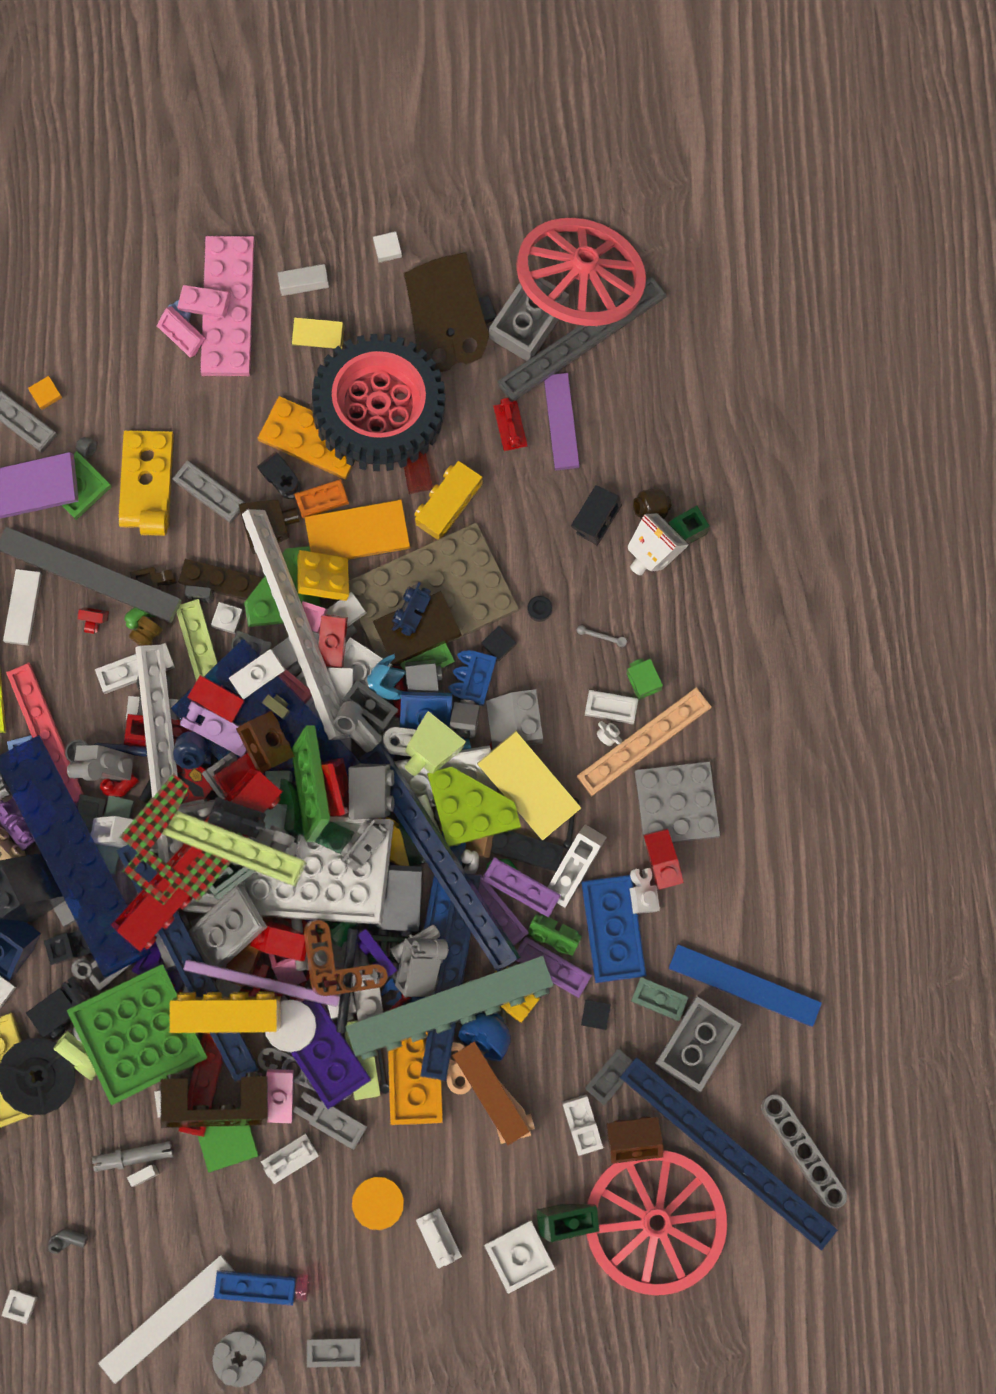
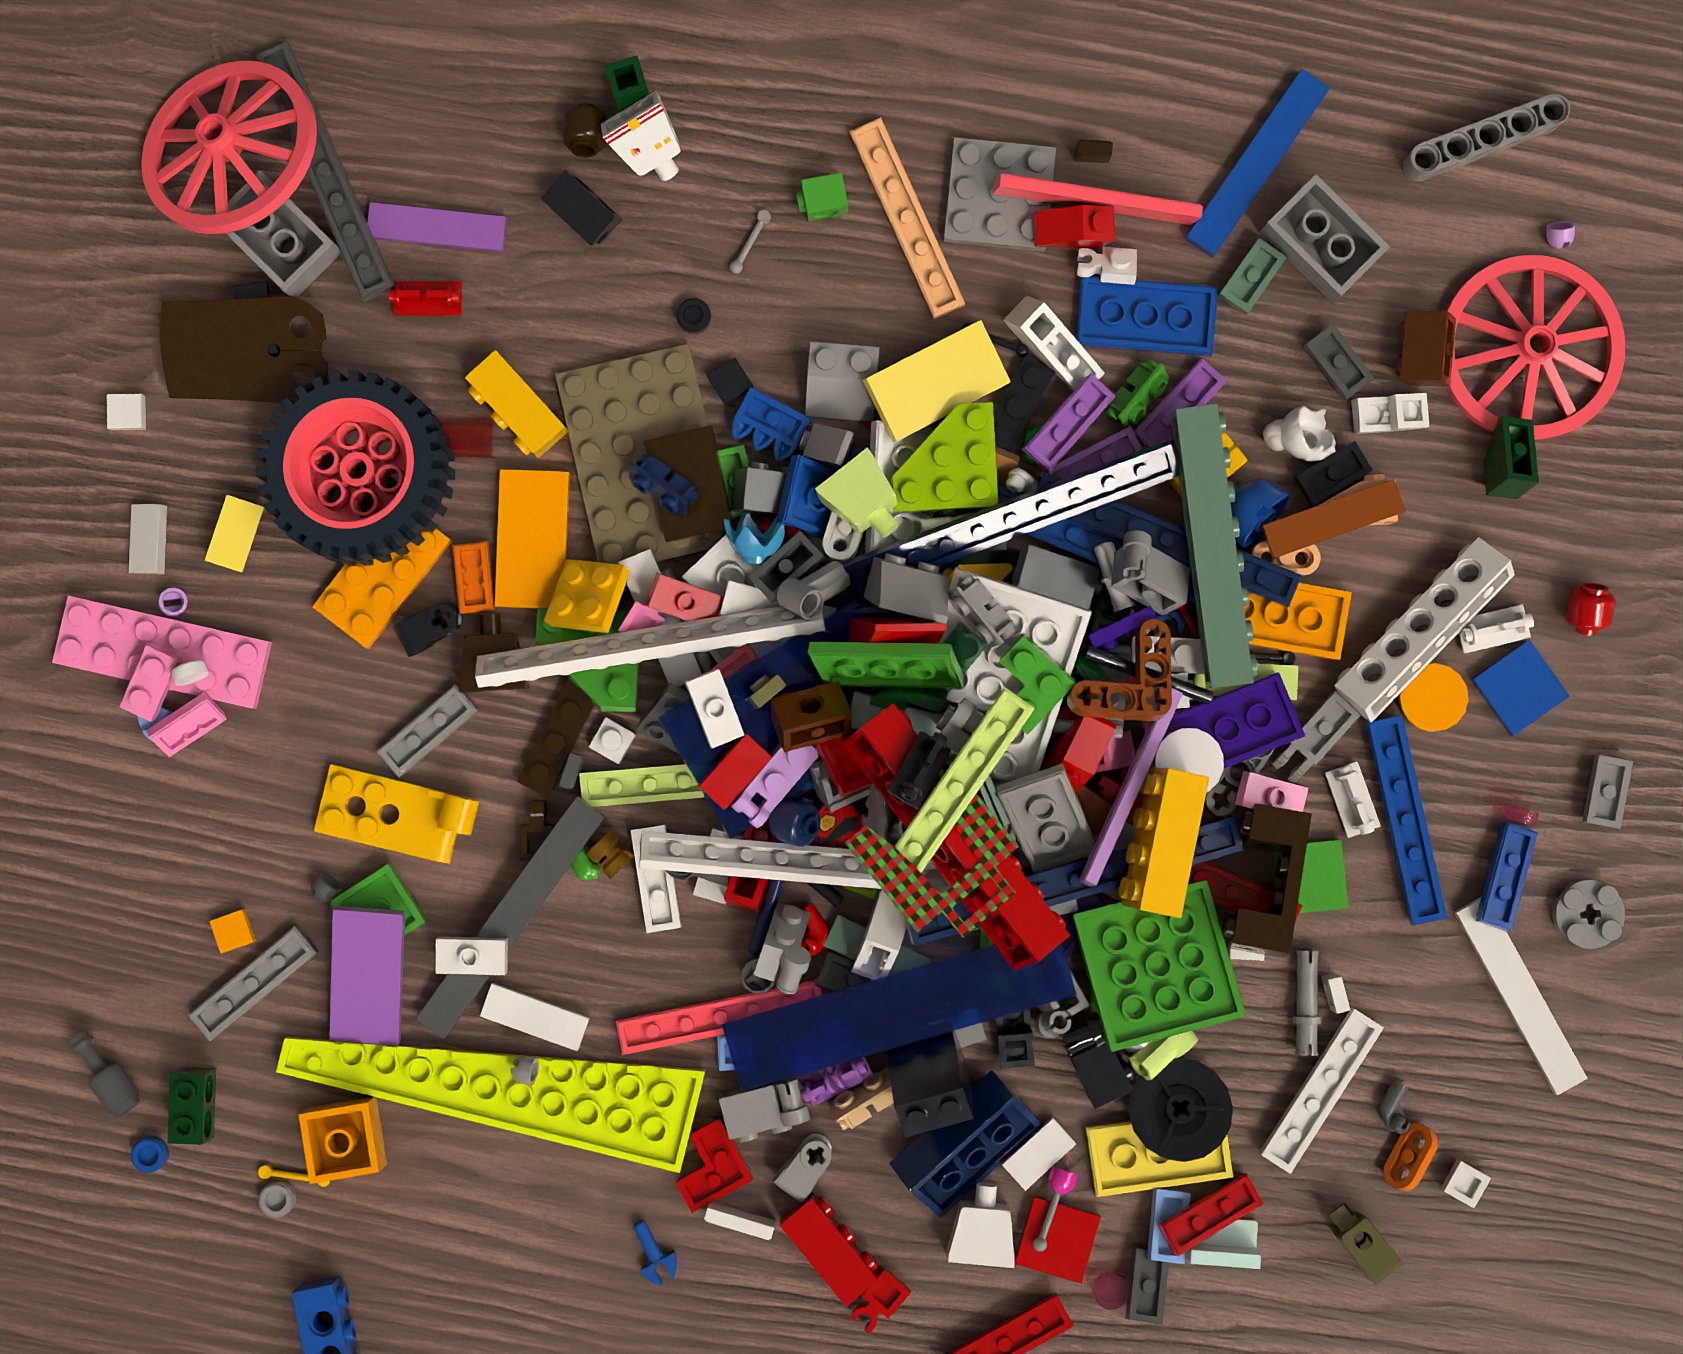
camera: 80 degrees left, 10 degrees up
(32, 1259) = (1409, 1156): none -> orange plate
(56, 553) = (471, 955): none -> white plate
(69, 1181) = (1321, 1090): none -> white plate
(92, 618) = (572, 922): red tile -> none
(215, 324) = (189, 672): none -> white tile
(257, 306) = (169, 595): none -> lavender hinge
(281, 1202) = (1406, 820): none -> blue plate
(325, 899) = (1042, 678): none -> bright green plate
(399, 1268) = (1520, 687): none -> blue tile
(431, 1195) = (1422, 647): none -> white brick
(468, 1308) = (1590, 608): none -> red head
(519, 1257) = (1539, 530): white plate -> none
(527, 1090) = (1333, 473): none -> black plate
(557, 1060) = (1301, 434): none -> white piece
(595, 1015) = (1253, 364): black tile -> none
(608, 734) = (888, 261): white plate -> none
(611, 707) = (850, 251): white tile -> none
(687, 872) = (1076, 195): none -> coral tile
(723, 862) = (1093, 151): none -> dark brown tile
(728, 1153) = (1468, 234): dark blue plate -> none
(746, 1225) = (1560, 234): none -> lavender hinge

